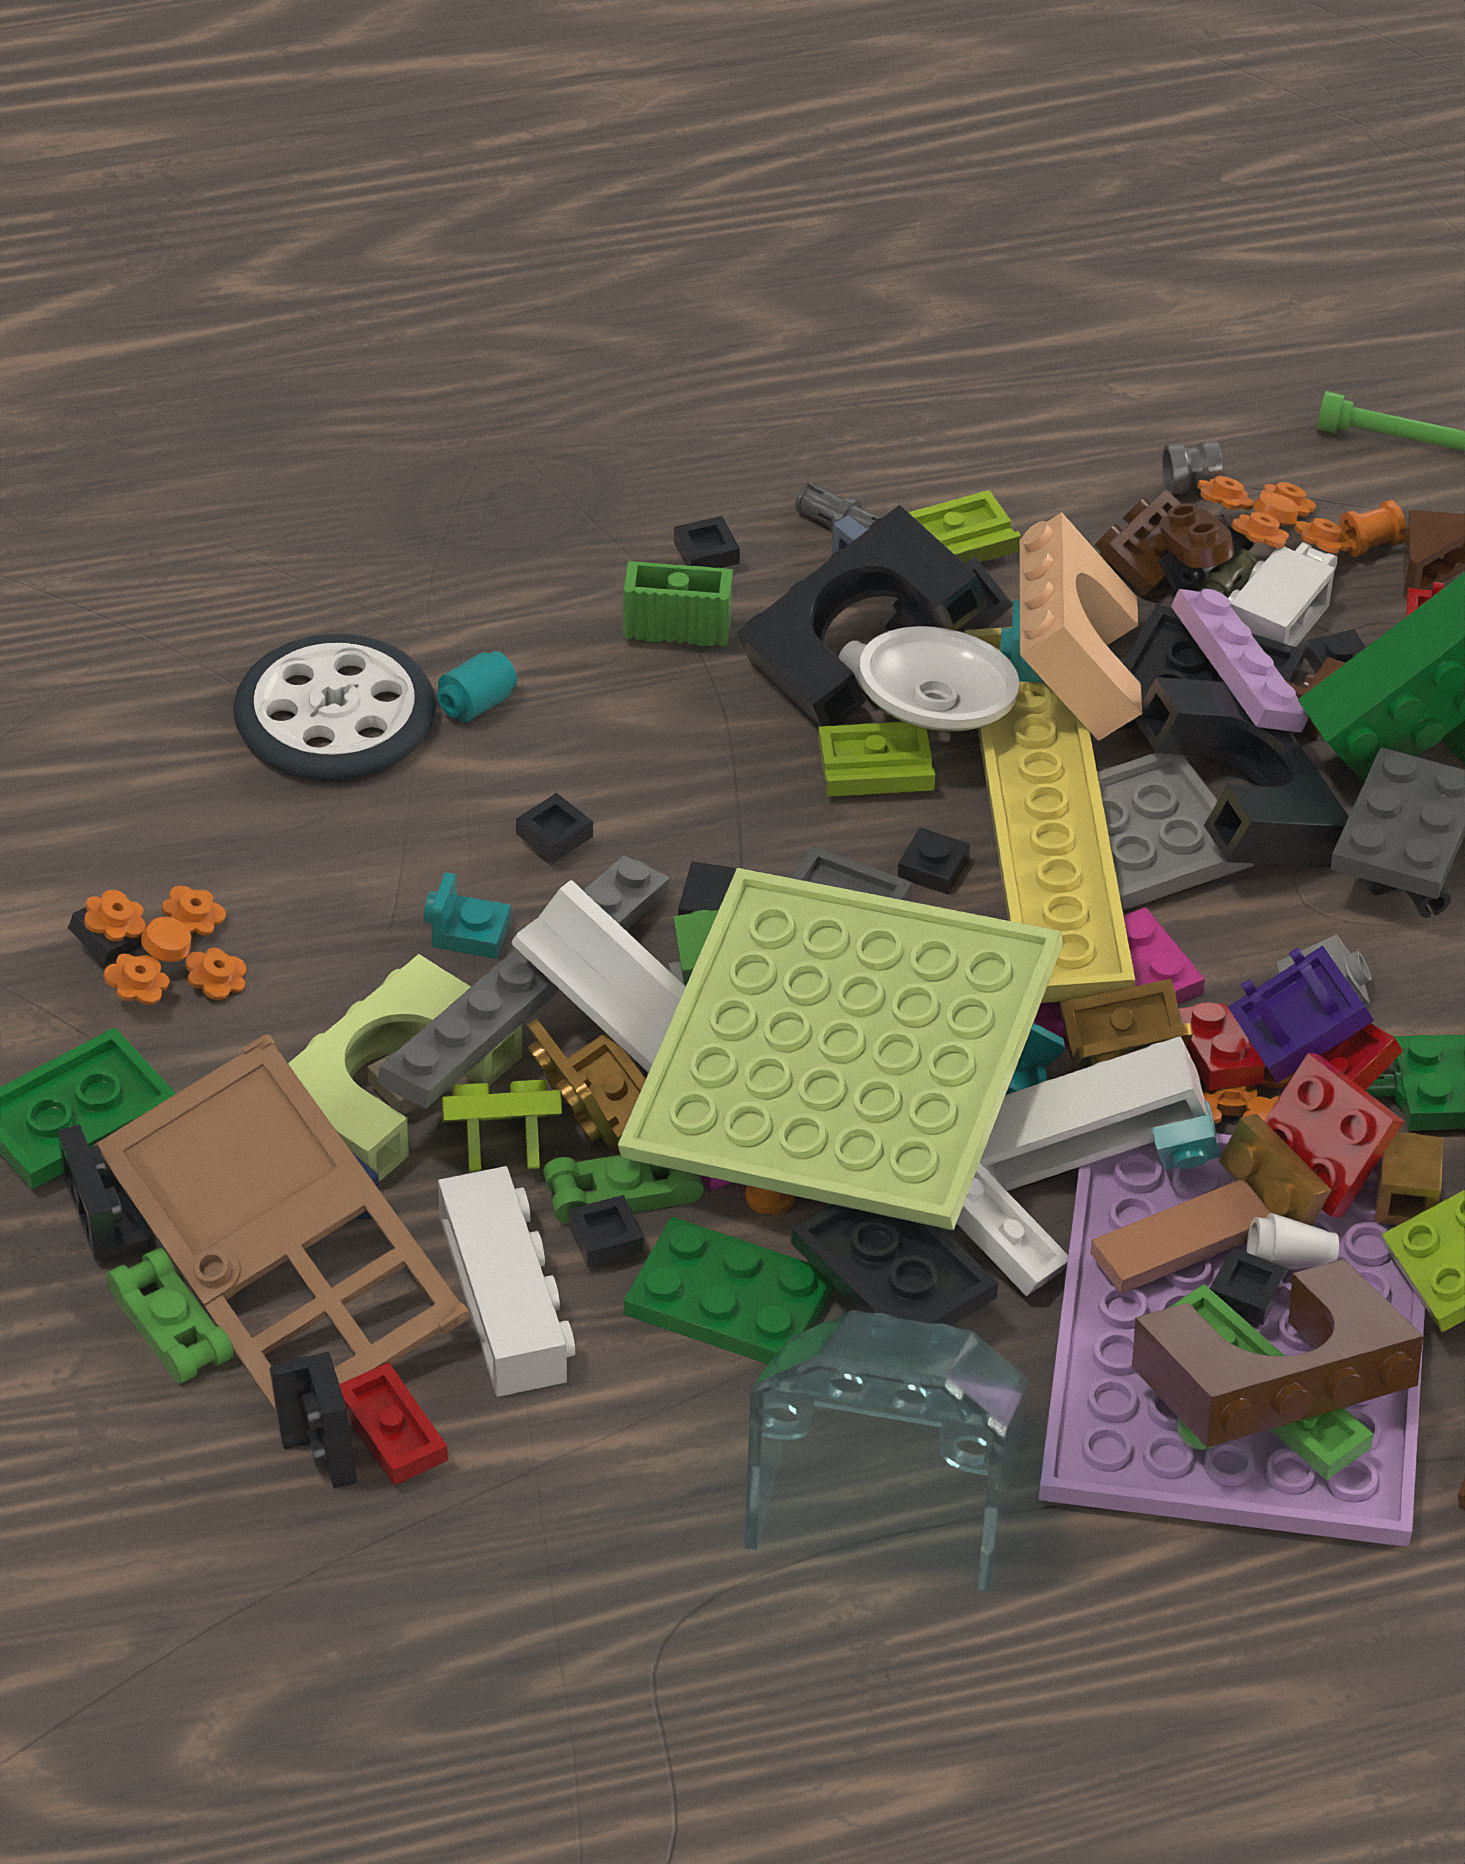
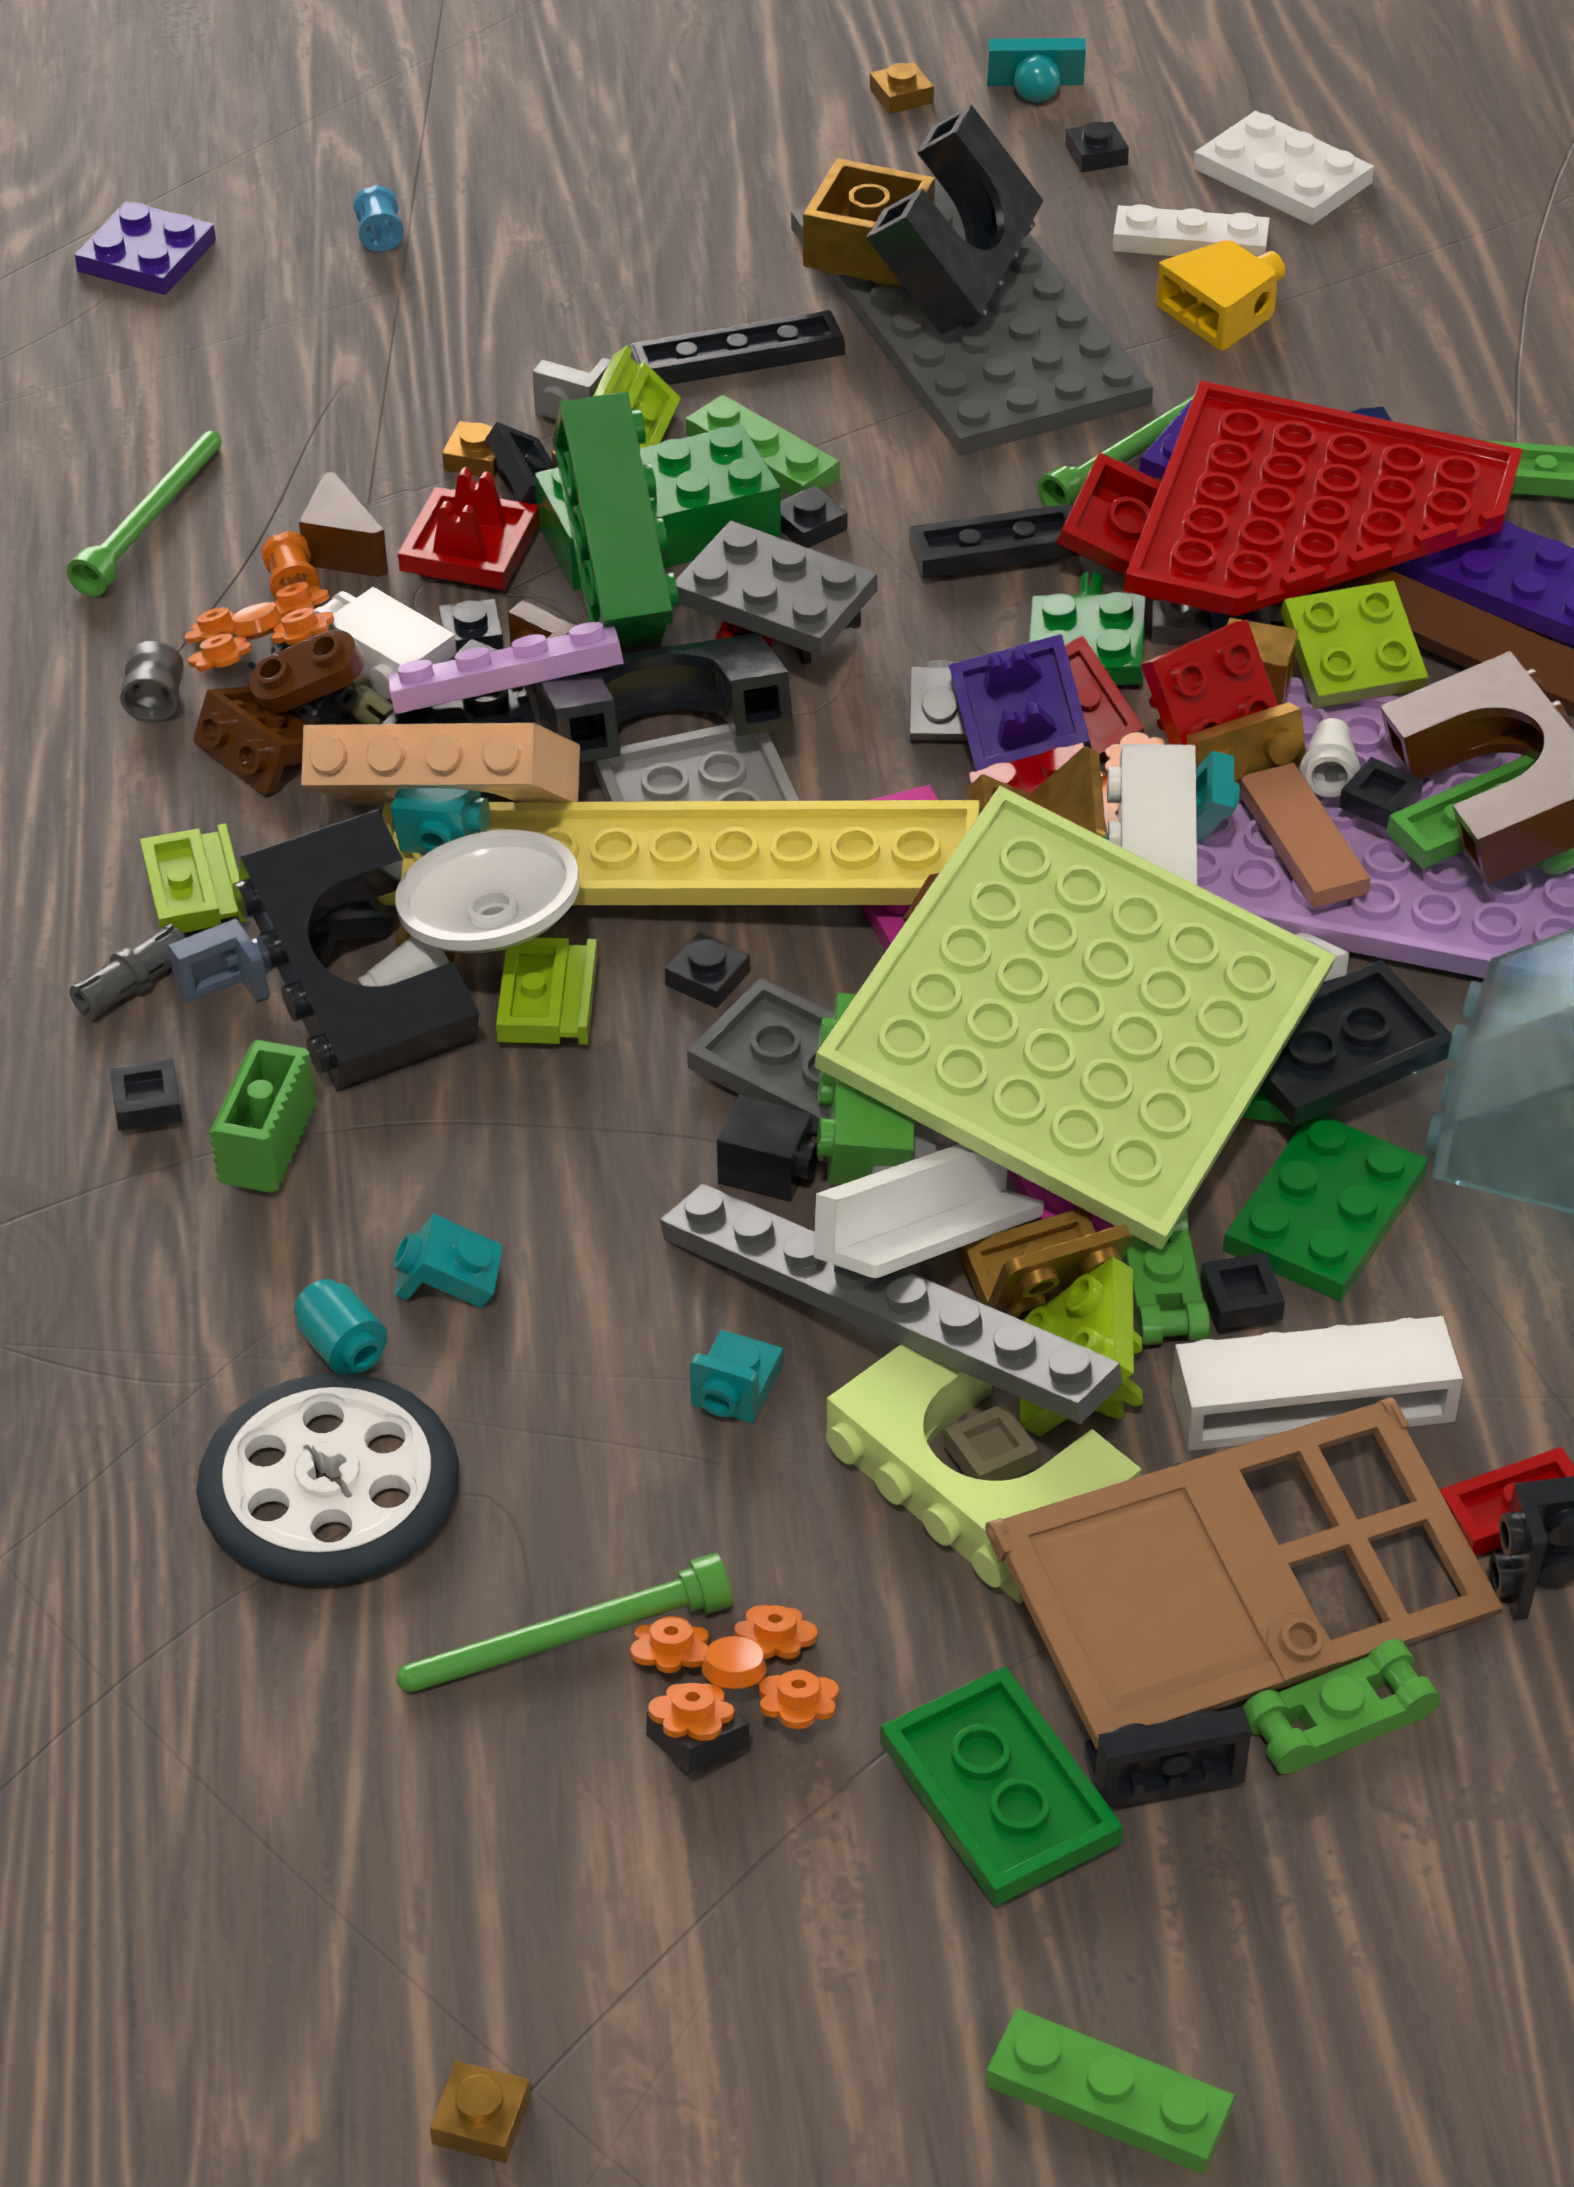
camera: 80 degrees left, 0 degrees up
(247, 920) = (697, 1587): none -> bright green piece
(554, 827) = (600, 1278): black plate -> none
(555, 739) = (448, 1260): none -> teal bracket

